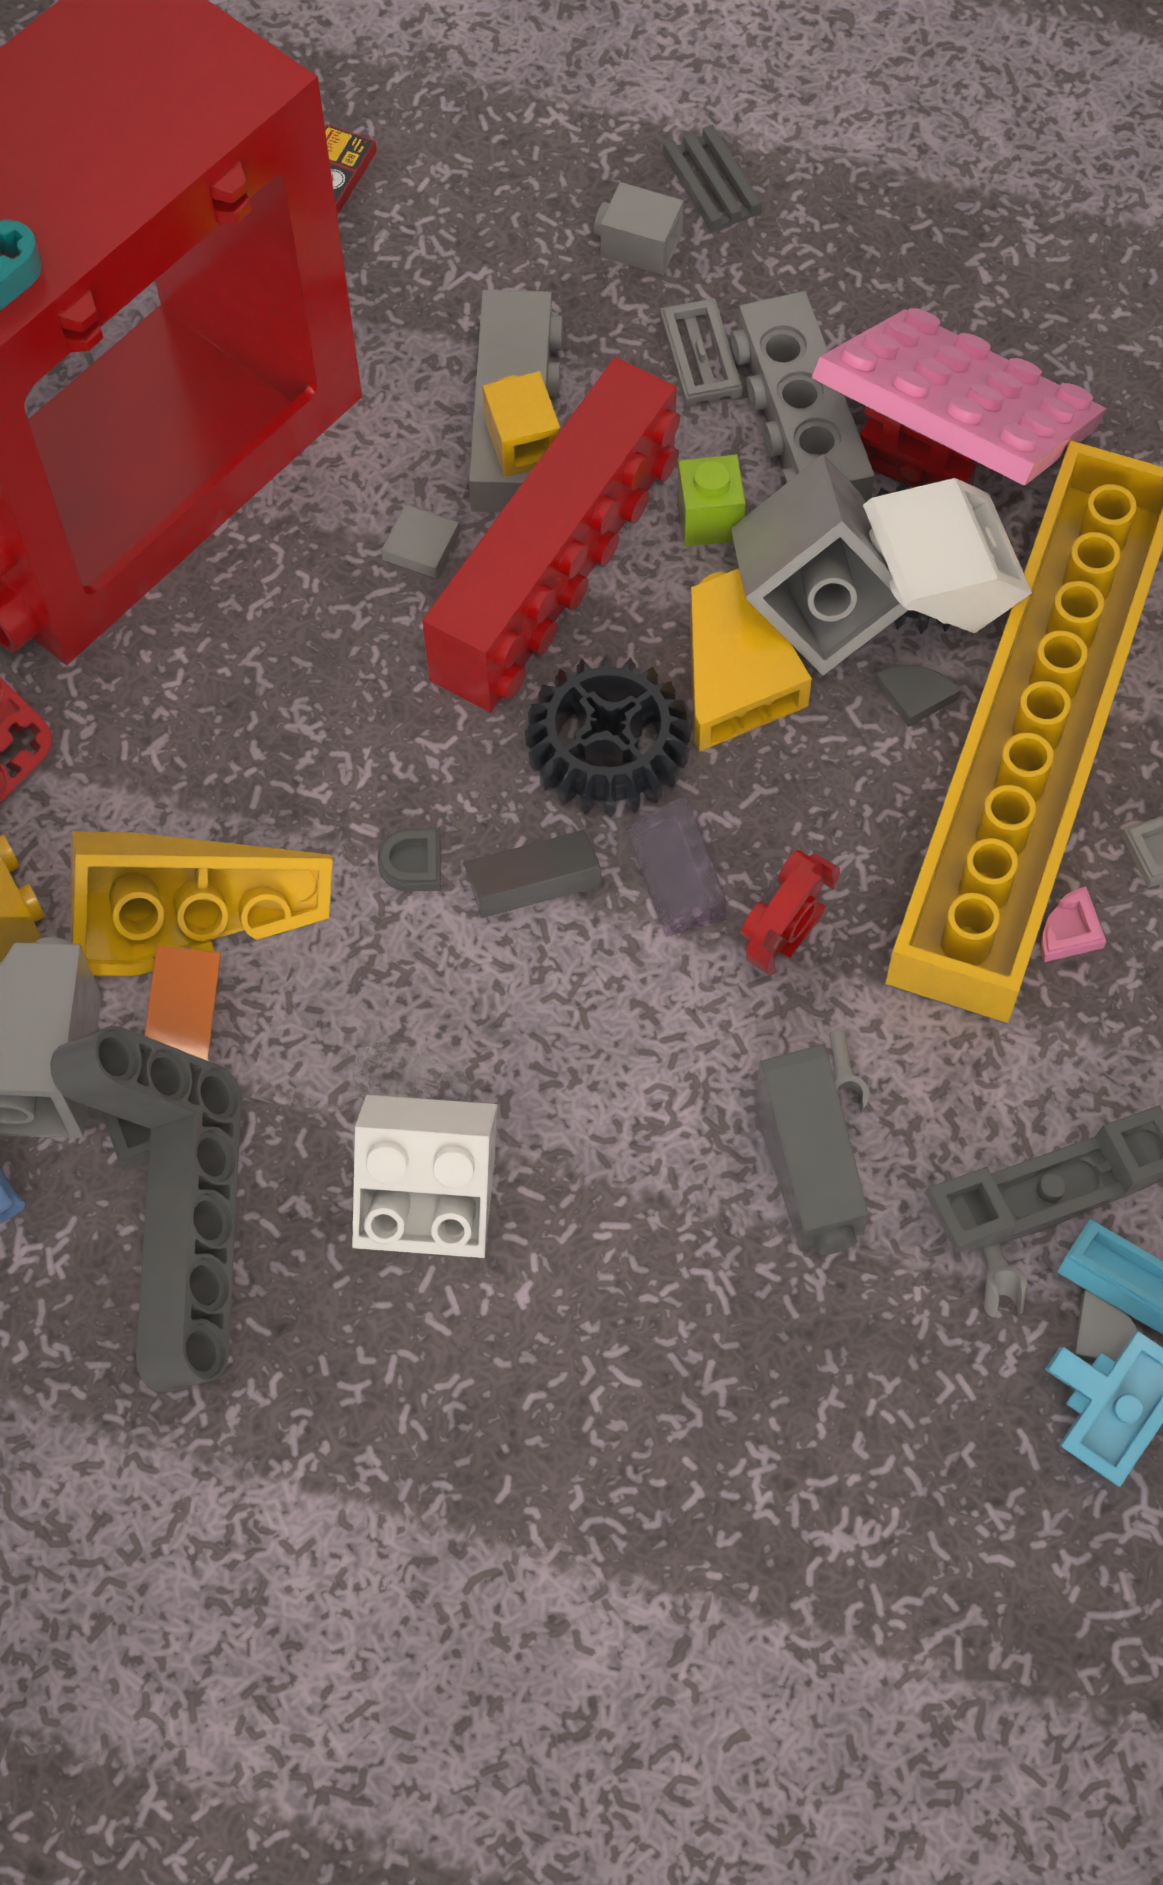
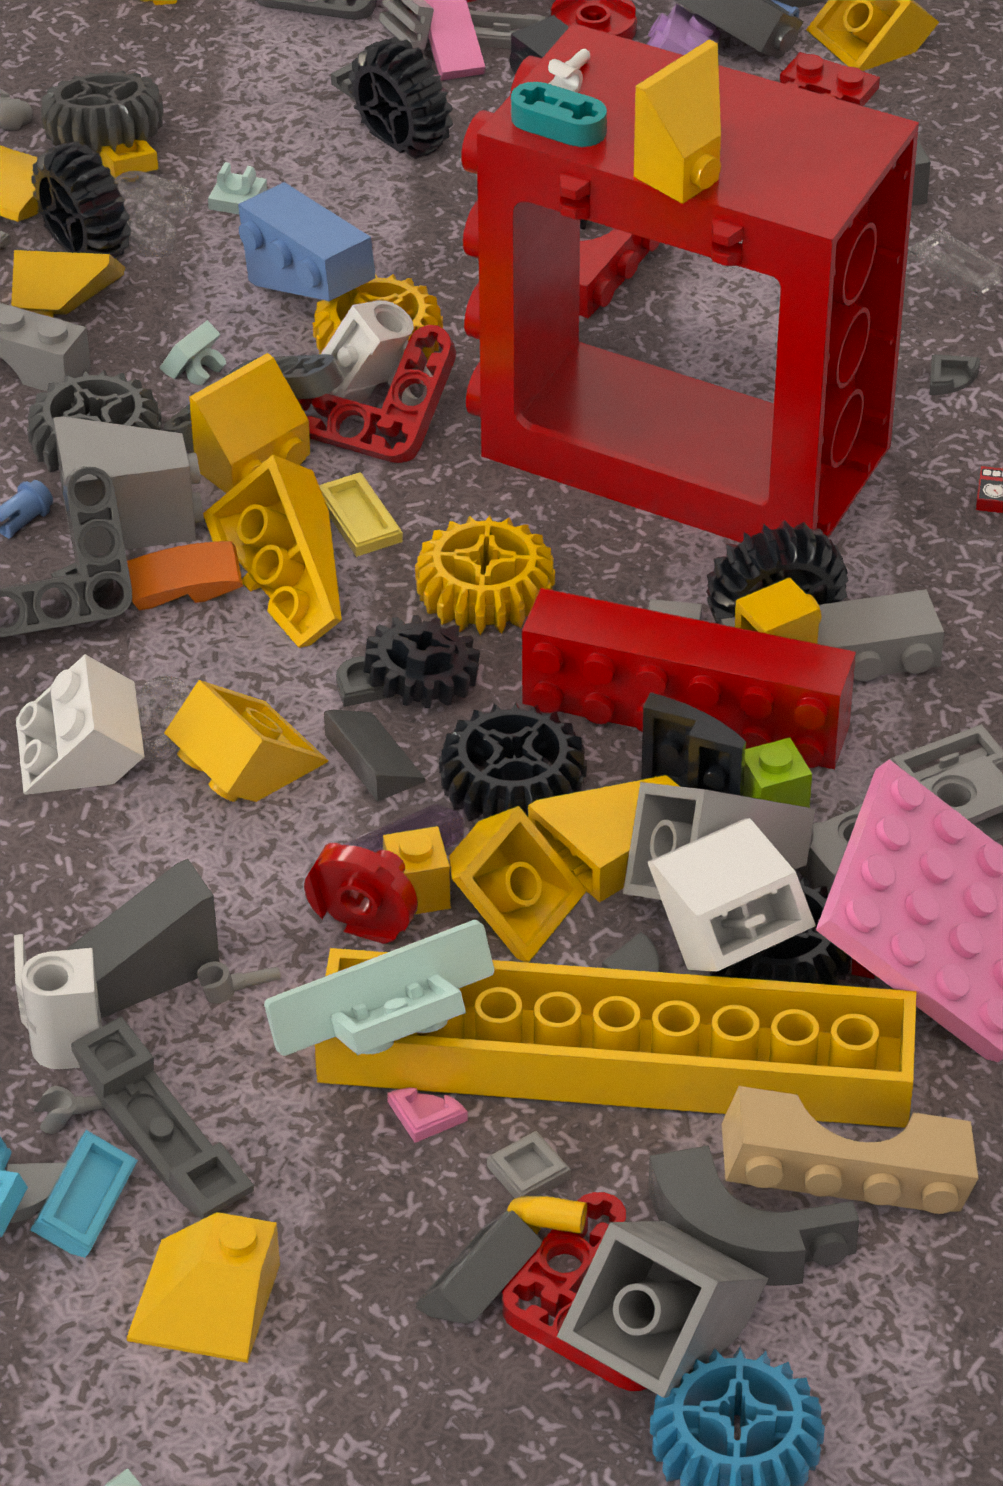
camera: 75 degrees right, 20 degrees down
(114, 142) = (680, 125): none -> yellow slope
(139, 804) = (360, 514): none -> light yellow tile
(301, 725) = (454, 578): none -> yellow gear
(418, 789) = (421, 661): none -> black gear
(433, 417) = (772, 557): none -> black gear
(497, 999) = (240, 743): none -> yellow slope
(674, 552) = (690, 747): none -> black slope
(751, 856) = (424, 866): none -> yellow brick
(779, 771) = (515, 880): none -> yellow slope
(896, 1257) = (56, 1001): none -> white piece
(1021, 899) = (384, 996): none -> light aqua bracket

